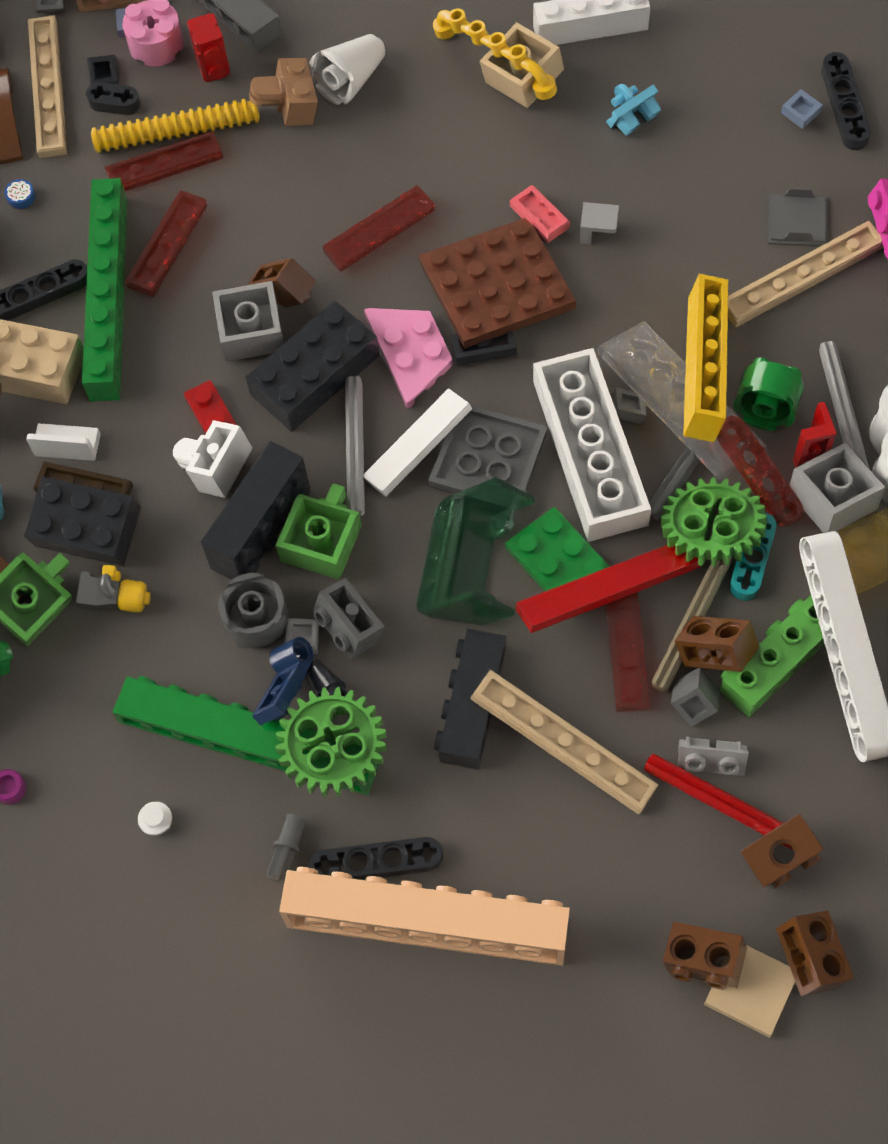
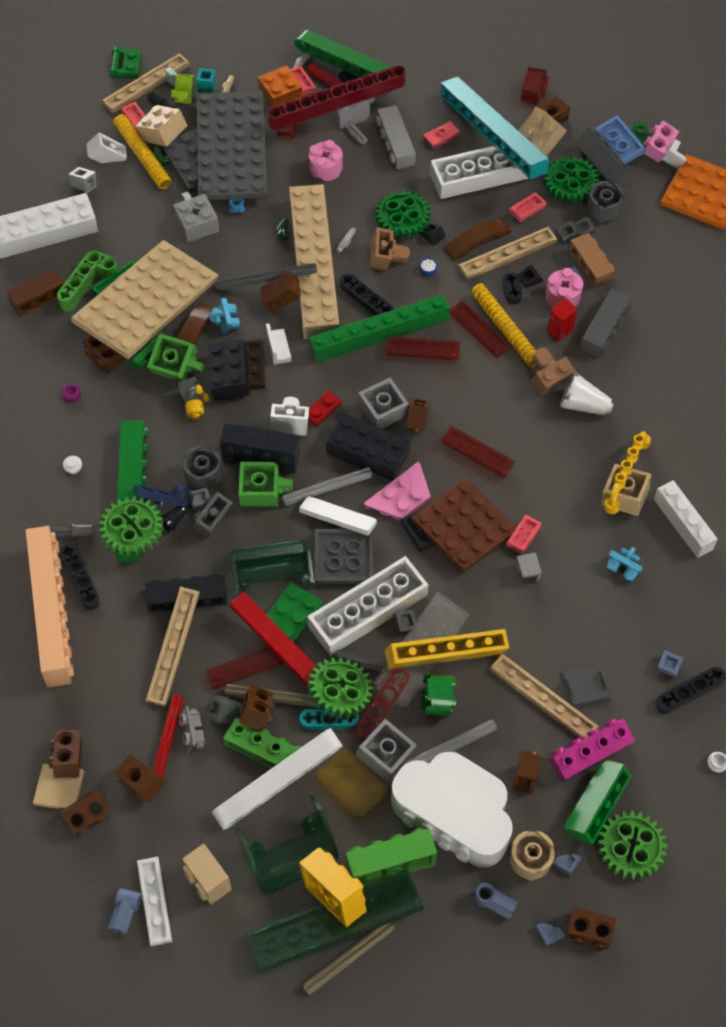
camera: 65 degrees right, 5 degrees down
(817, 438) = (415, 731): red panel -> none

